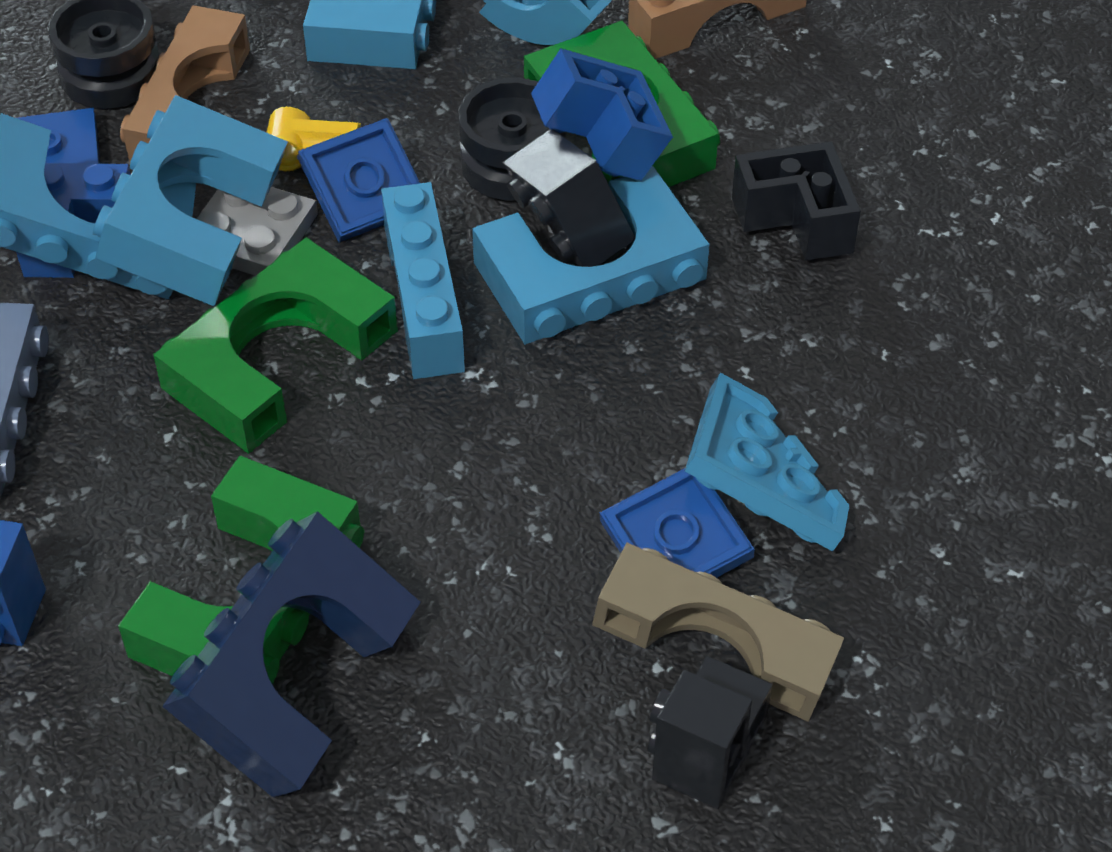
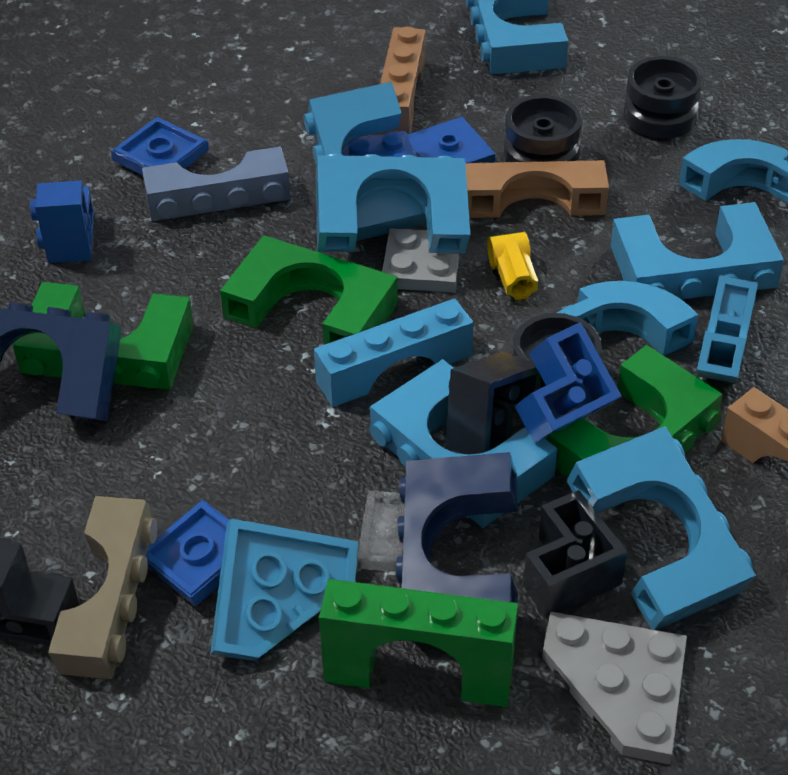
camera: 75 degrees right, 5 degrees down
(350, 175) = (487, 294): blue plate -> none
(446, 55) = (638, 309): none -> dark azure arch
(696, 352) = (379, 533): none -> clear plate
(818, 328) = (440, 493): none -> dark blue arch
(840, 101) = (657, 471): none -> dark azure arch
(905, 318) = (470, 629): none -> green arch
(946, 215) = (622, 679): none -> light grey plate

